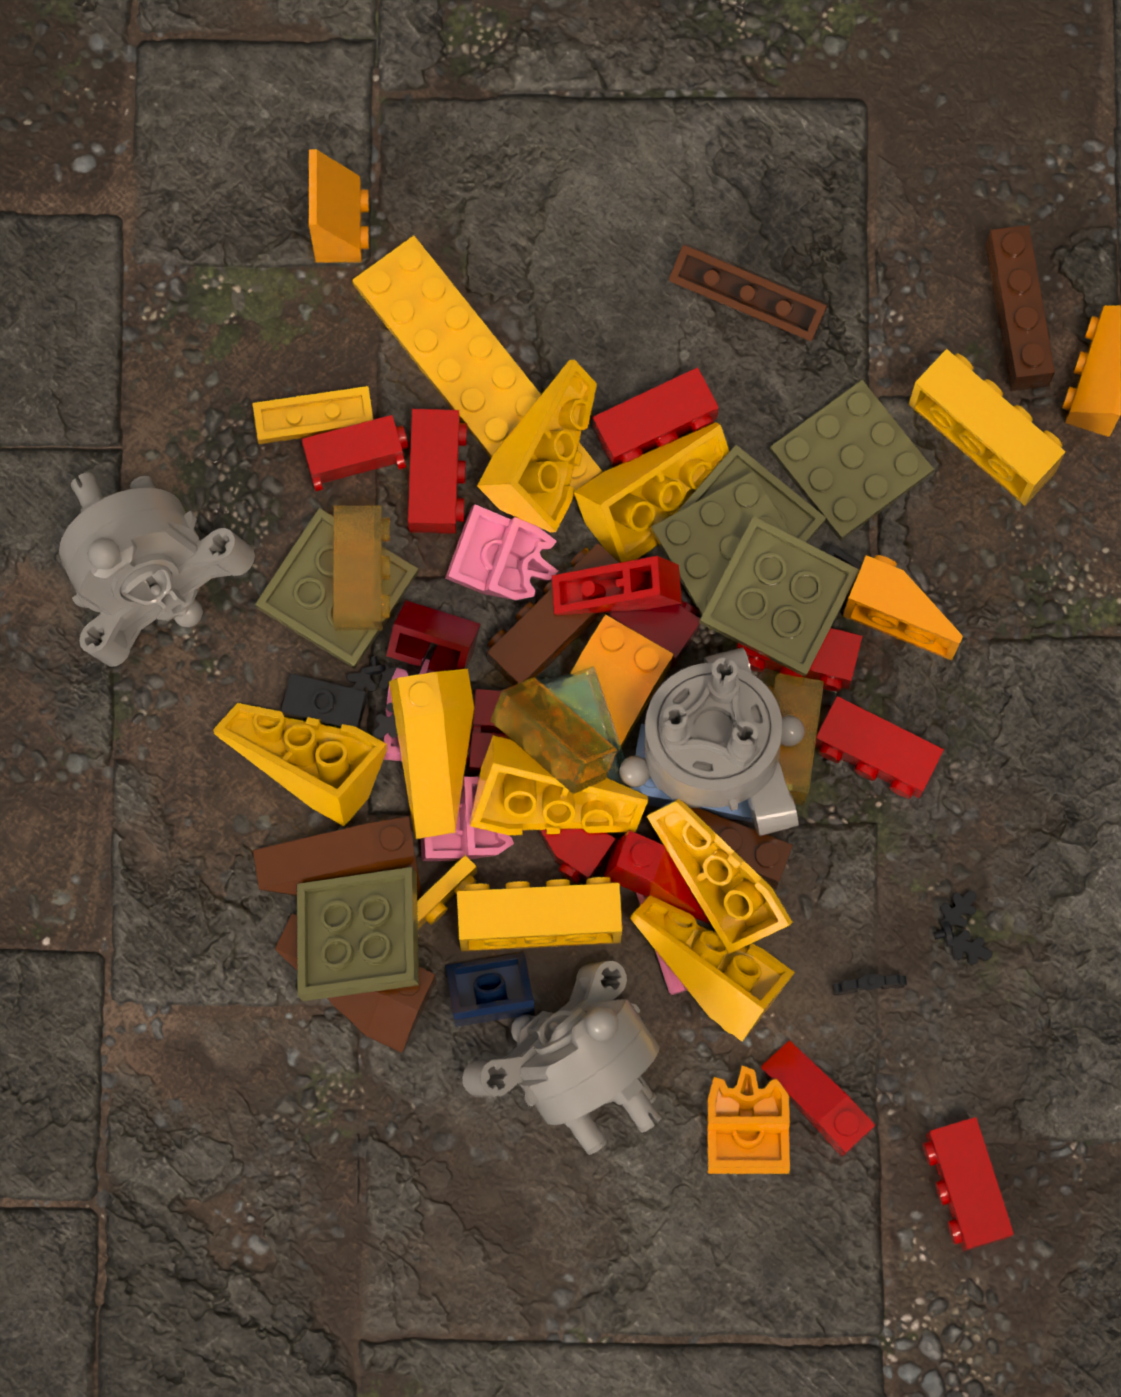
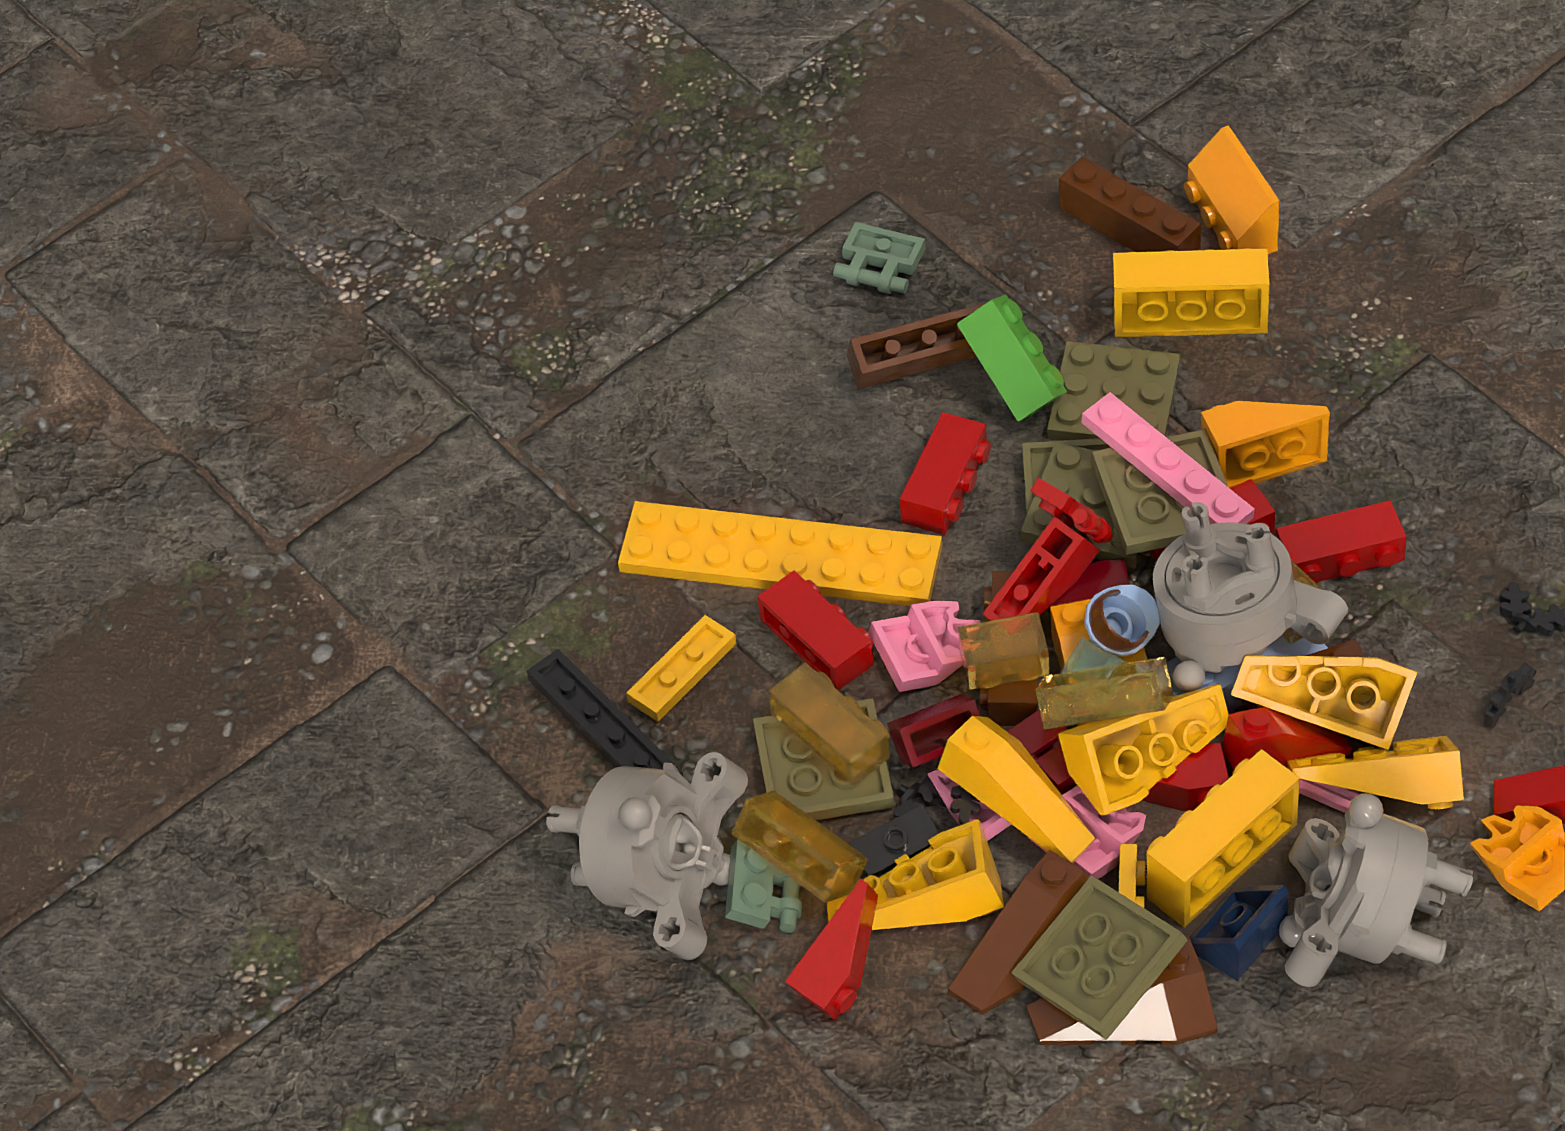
camera: 35 degrees left, 25 degrees down
(190, 764) = (836, 960): none -> red slope
(191, 646) = (751, 891): none -> sand green plate
(216, 415) = (594, 714): none -> black plate
(242, 652) = (799, 846): none -> clear yellow brick
(336, 211) = (559, 523): light orange slope -> none
(355, 450) = (738, 664): red brick -> none
(529, 626) = (1003, 651): none -> clear yellow brick
(537, 459) = (886, 551): yellow wedge -> none
(626, 682) = (1122, 619): none -> light blue piece
(642, 492) = (989, 518): yellow wedge -> none
(686, 556) = (1072, 512): none -> red plate
(788, 369) = (1012, 357): none -> bright green brick
(795, 579) = (1164, 461): none -> bright pink plate
(809, 167) = (883, 249): none -> sand green plate

